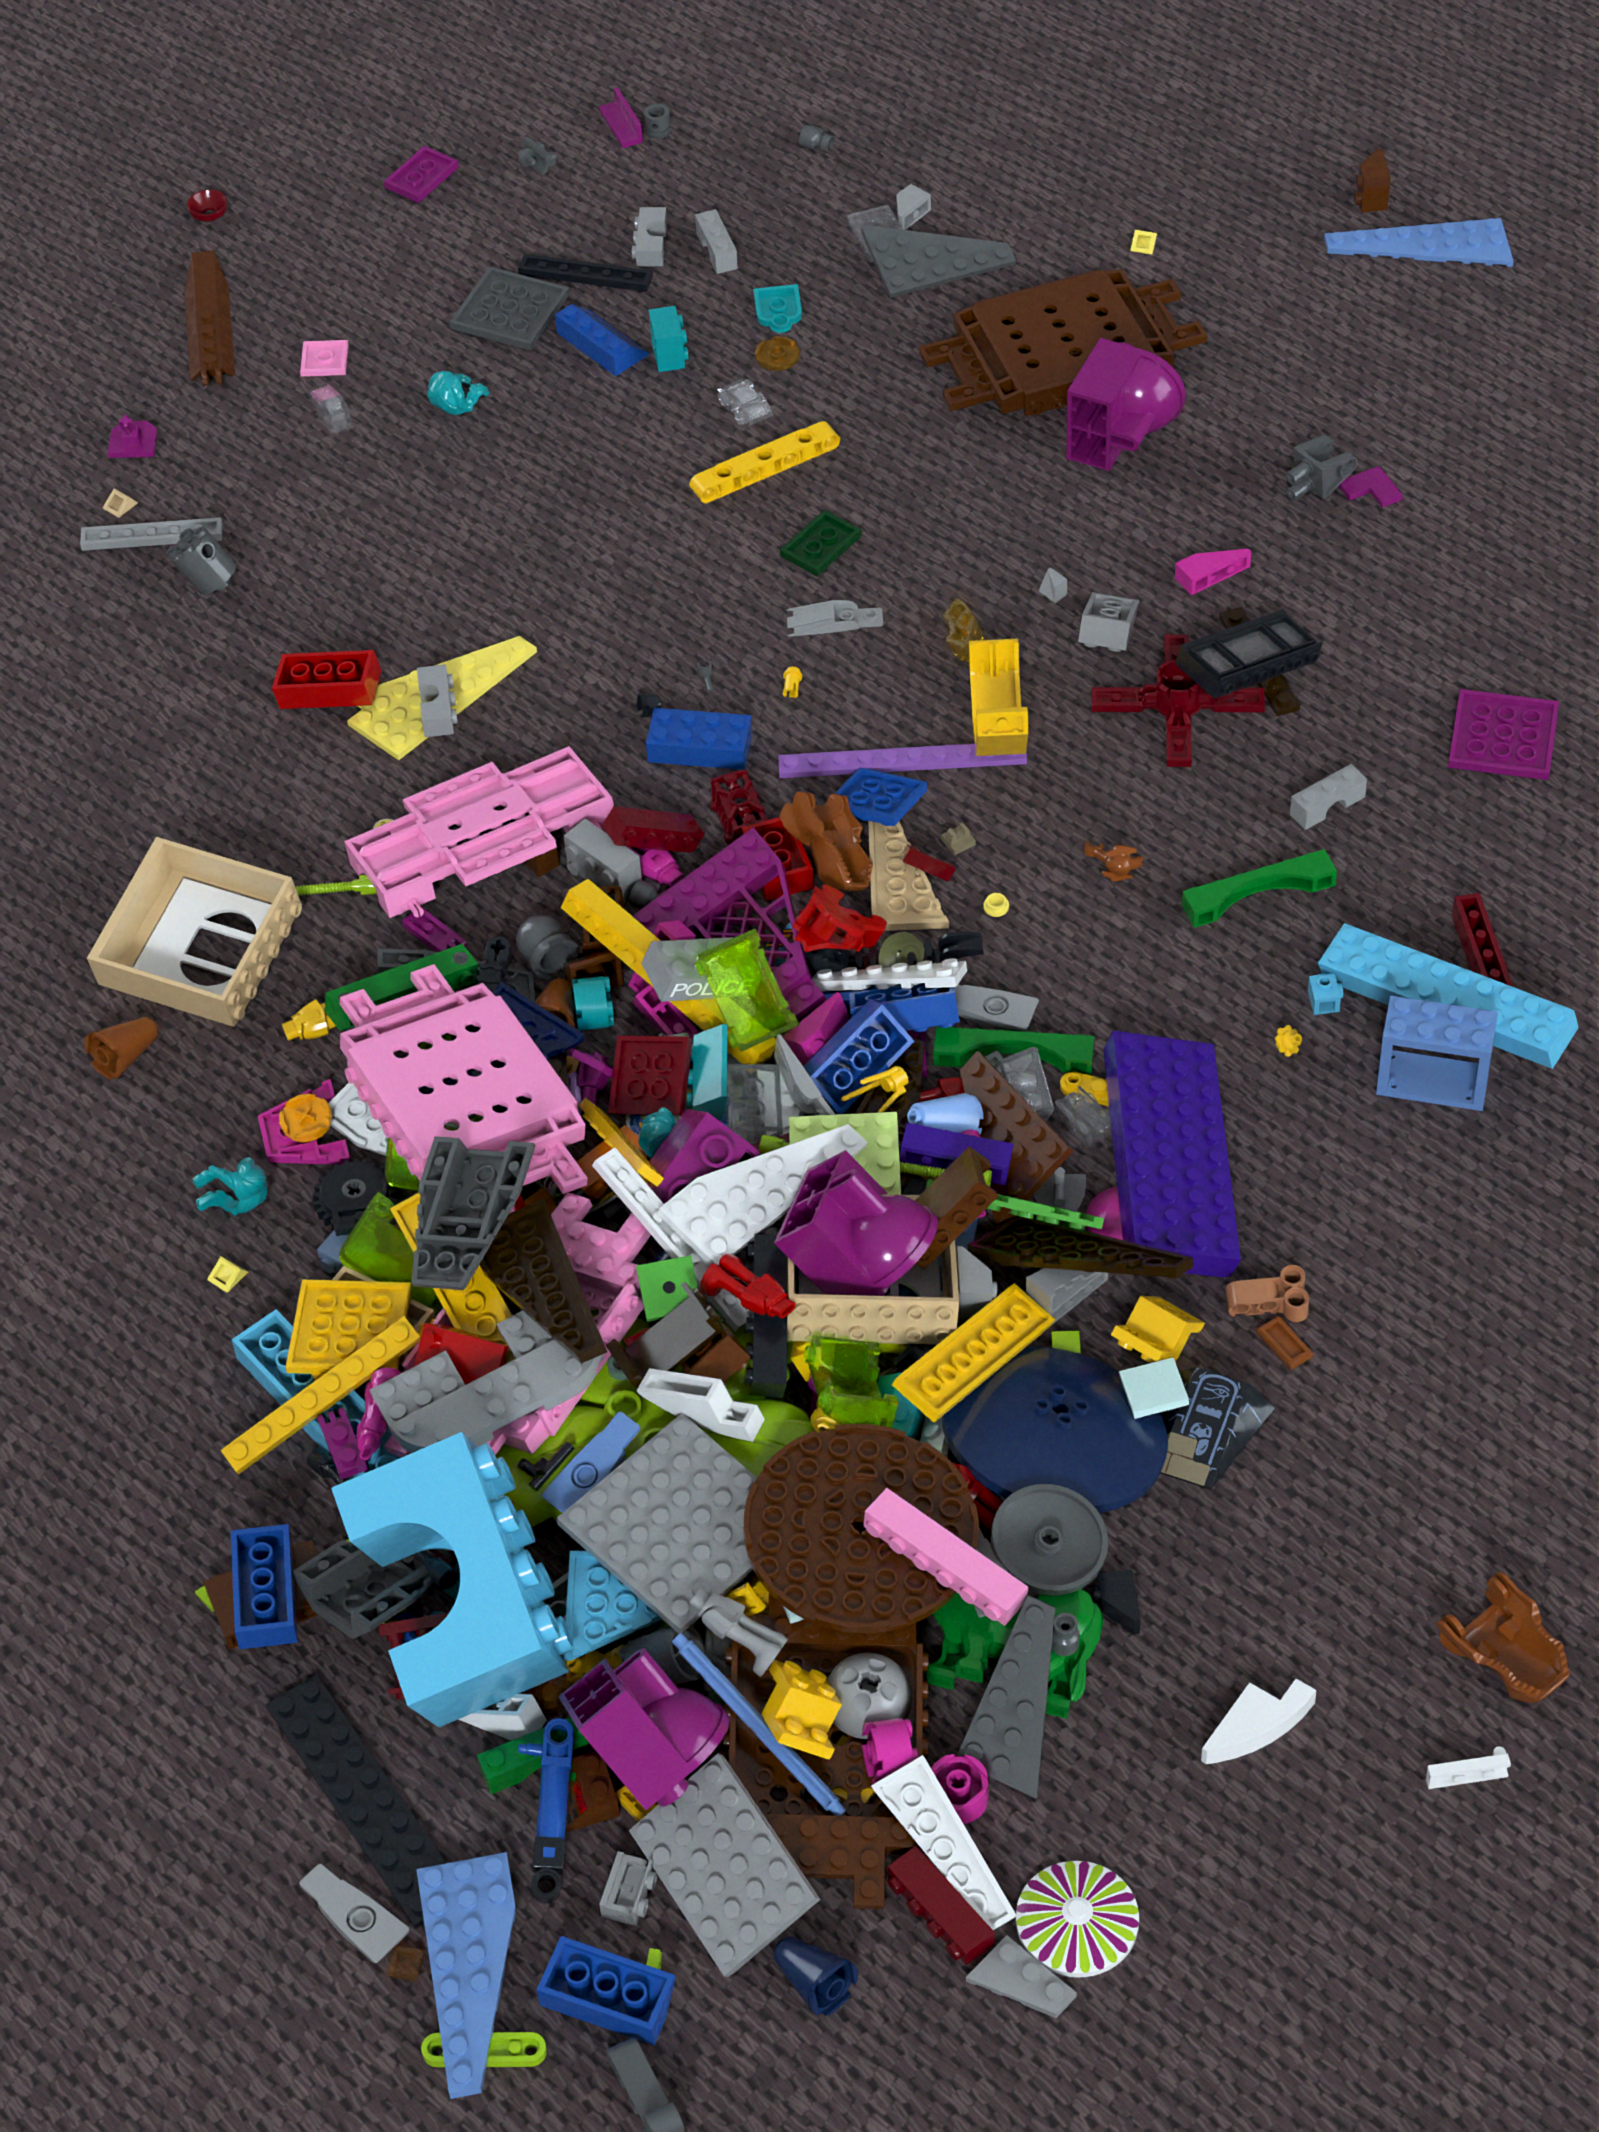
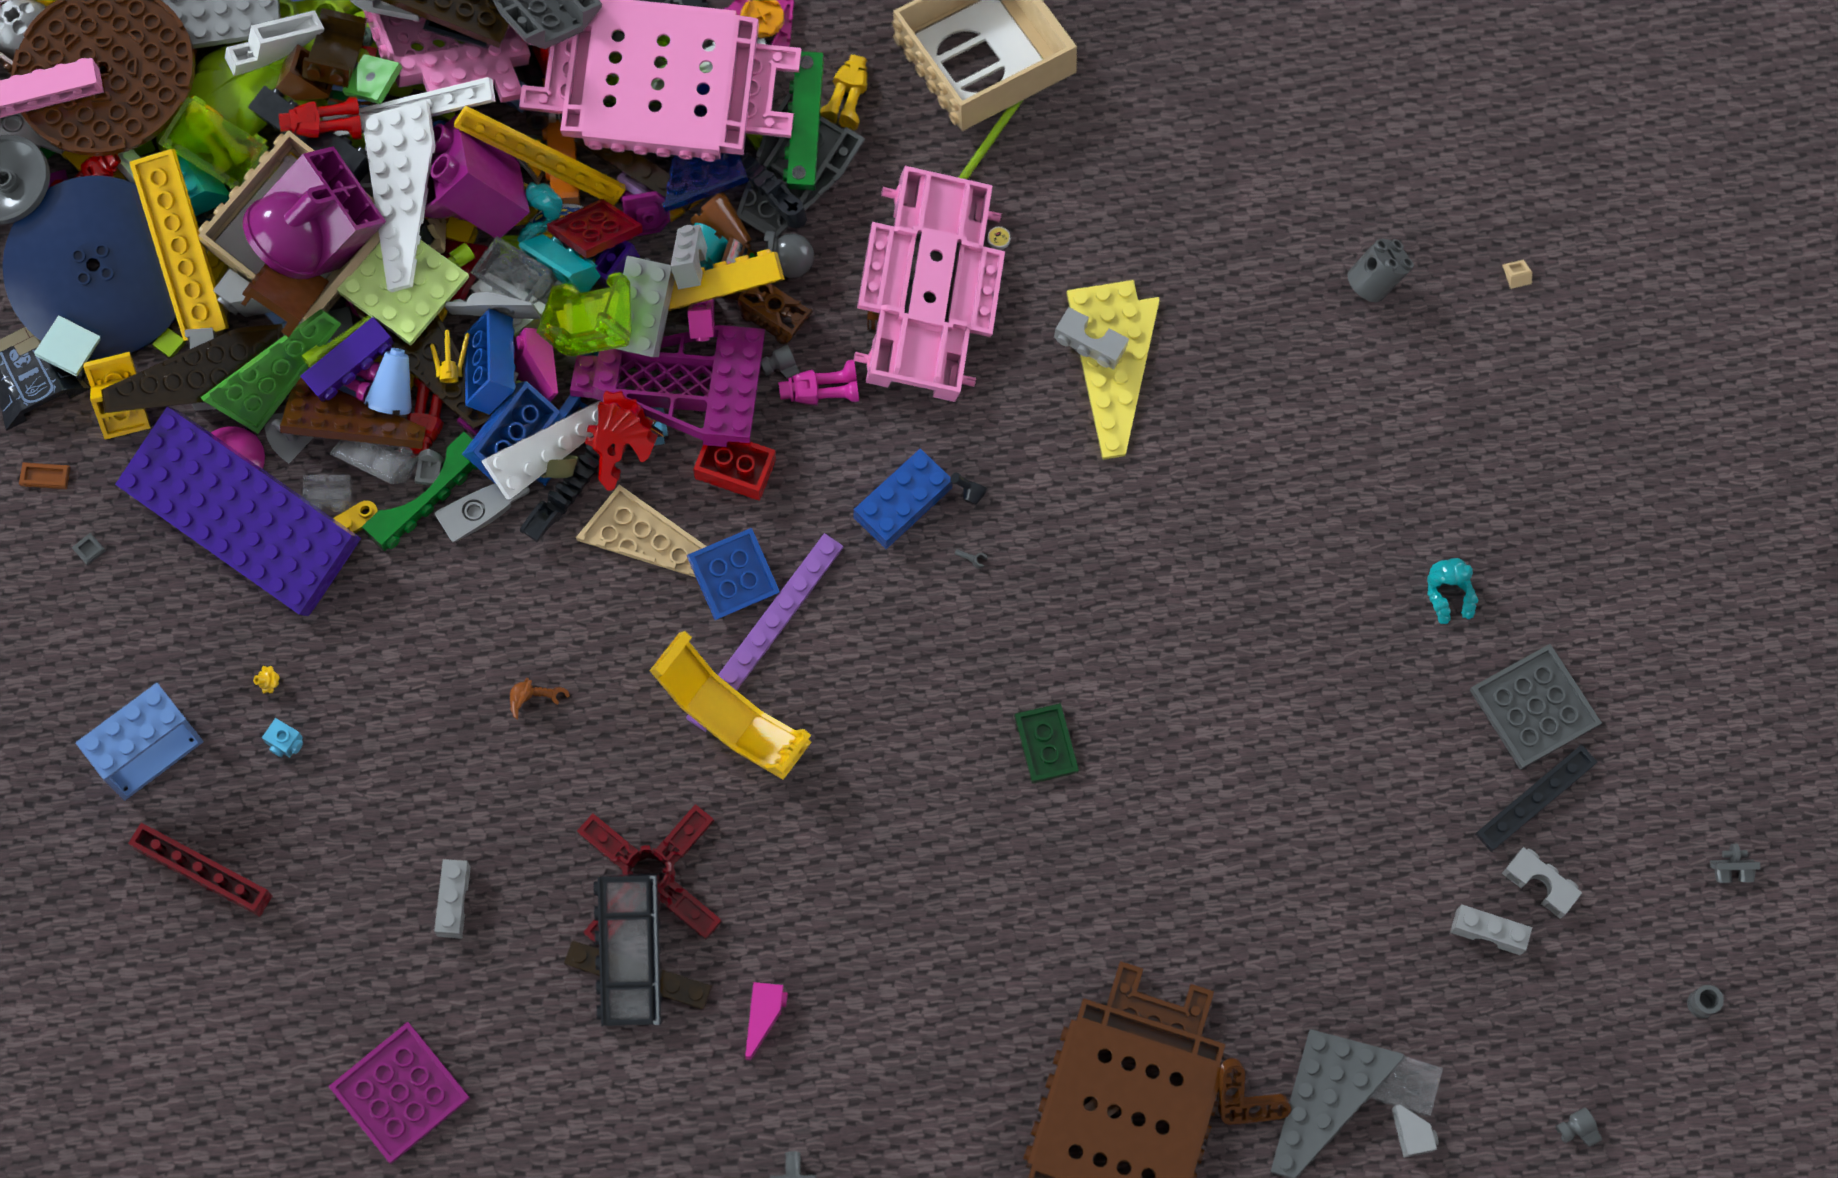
camera: 120 degrees right, 20 degrees up
(132, 439) = (1586, 322): magenta piece -> none
(144, 533) = (1458, 271): light grey plate -> none
(208, 319) = (1703, 469): reddish brown hinge -> none
(324, 358) = (1584, 526): bright pink tile -> none
(326, 679) = (1177, 281): red brick -> none
(331, 408) = (1515, 487): clear slope -> none
(421, 174) = (1781, 755): magenta plate -> none
(432, 932) = (864, 204): magenta hinge -> none
(597, 858) = (828, 341): light grey brick -> none
(598, 339) = (1436, 750): blue slope -> none
(611, 969) = (687, 253): none -> light grey arch
(622, 120) = (1733, 975): magenta panel -> none
(653, 829) = (821, 386): dark red brick -> none
(668, 338) = (1382, 790): teal brick -> none
(727, 809) = (805, 487): dark red piece -> none
(744, 402) = (1257, 801): clear brick -> none
(764, 461) = (1174, 784): yellow beam -> none
(777, 353) = (1301, 881): pearl gold tile -> none
(778, 307) = (1366, 923): teal plate -> none
(792, 678) = (914, 613): yellow pin -> none
(832, 617) = (957, 693): light grey piece -> none
(833, 839) = (704, 498): dark orange animal -> none
(928, 863) = (642, 565): dark red slope -> none
(958, 839) = (652, 609): dark tan tile -> none
(962, 629) = (848, 767): clear yellow brick -> none
(977, 285) = (1238, 1101): none -> reddish brown beam
(996, 905) = (567, 586): light yellow plate -> none
(1054, 585) = (847, 882): light grey slope -> none
(1108, 621) = (776, 893): light grey slope -> none
(1119, 401) = (981, 1071): magenta piece -> none
(1271, 1295) = (80, 491): nougat piece -> none
(1304, 873) = (397, 822): green arch -> none
(1313, 1257) = (88, 549): none -> dark grey tile
(1383, 968) = (184, 800): medium azure brick -> none

